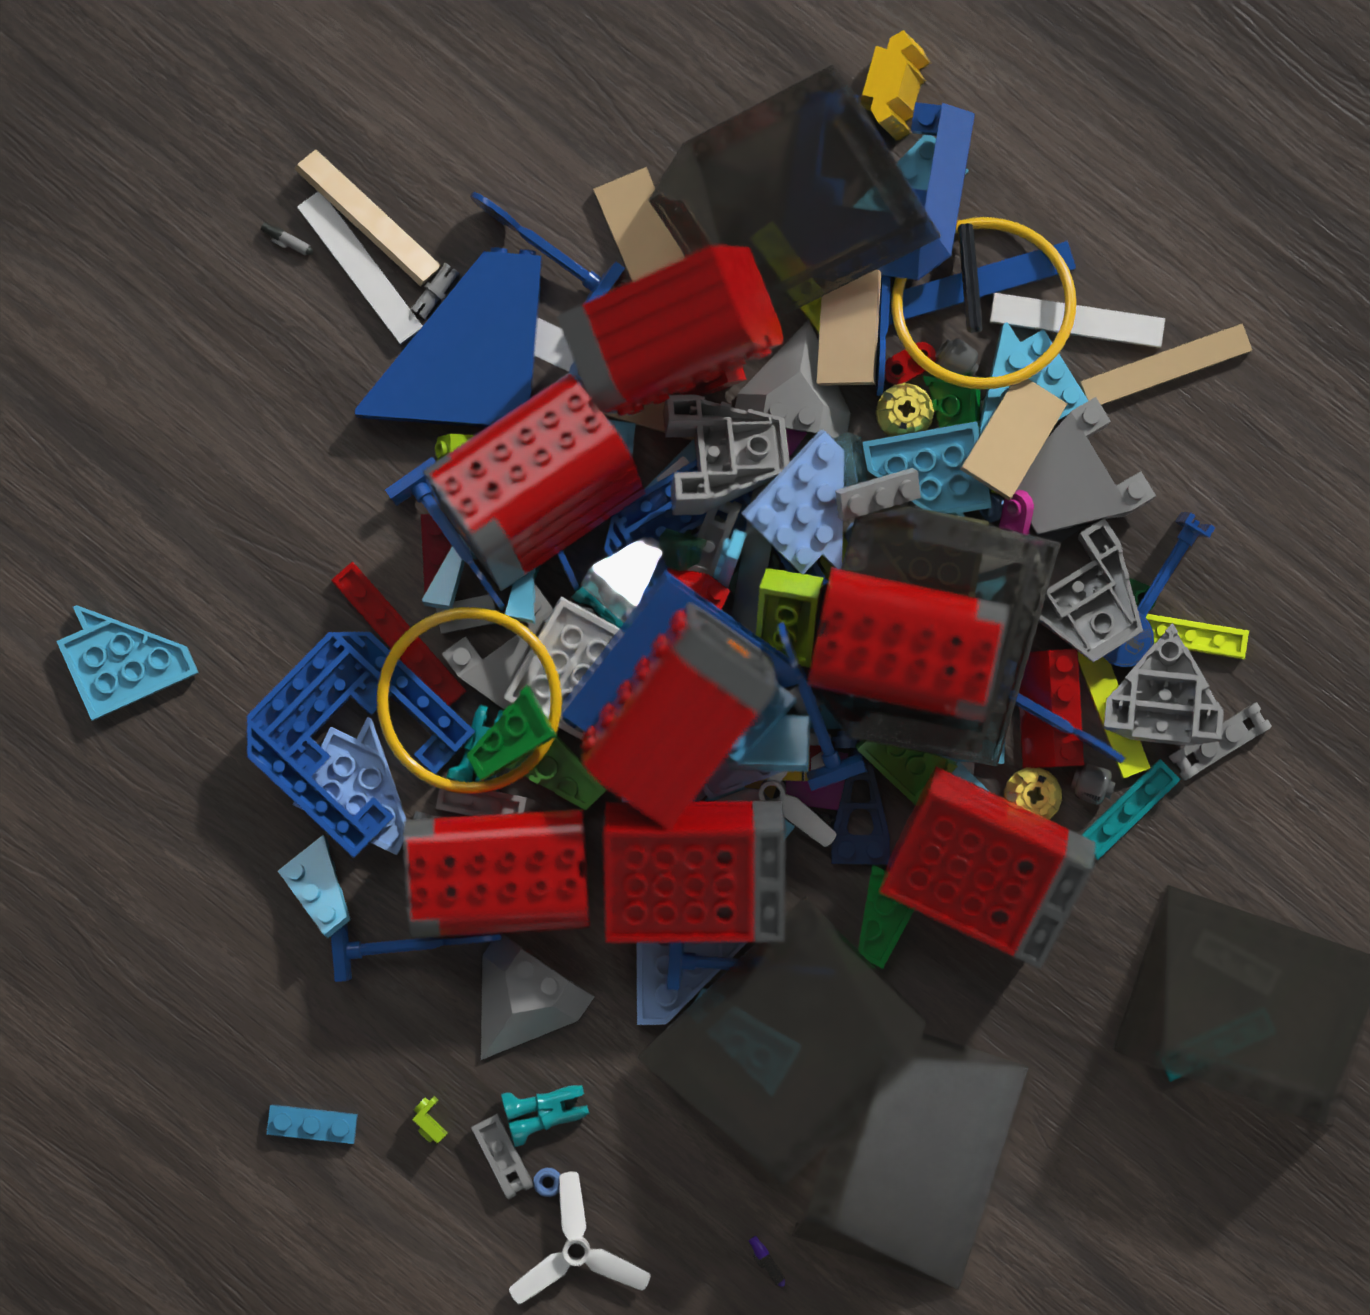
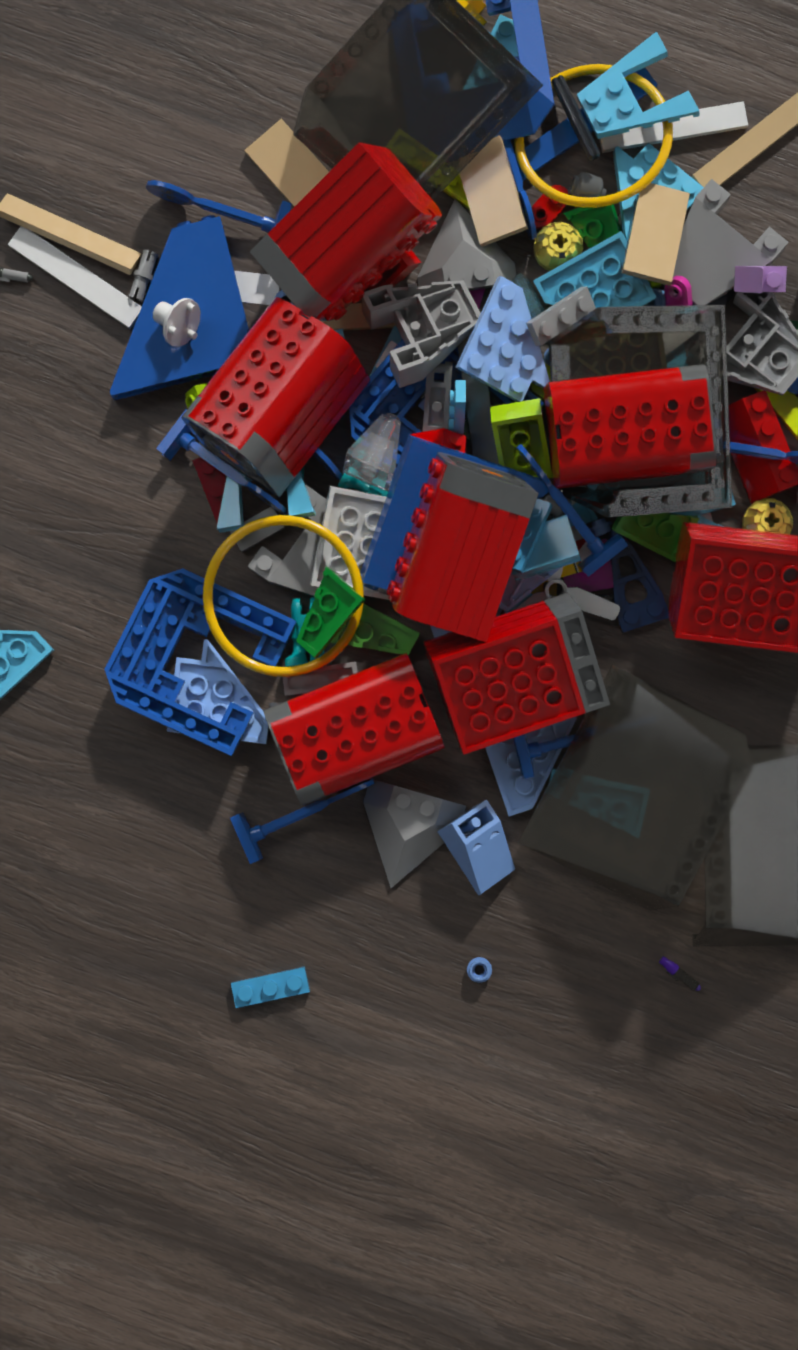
camera: 15 degrees left, 0 degrees up
(316, 886) = (208, 791): medium azure wing -> none
(391, 627) = (198, 560): red tile -> none
(429, 1127) = (367, 958): lime bracket -> none
(455, 359) = (178, 320): none -> white piece
(502, 1155) = (434, 960): light grey plate -> none
(550, 1111) = (461, 910): teal piece -> none
(558, 1263) = (510, 1033): white piece -> none
(592, 1047) = (479, 846): none -> medium blue slope
(681, 549) = (415, 416): clear green piece -> none
(882, 921) = (680, 663): green wing -> none
(1015, 278) = (613, 107): none -> medium azure wing
(1110, 526) = (760, 279): none -> lavender slope

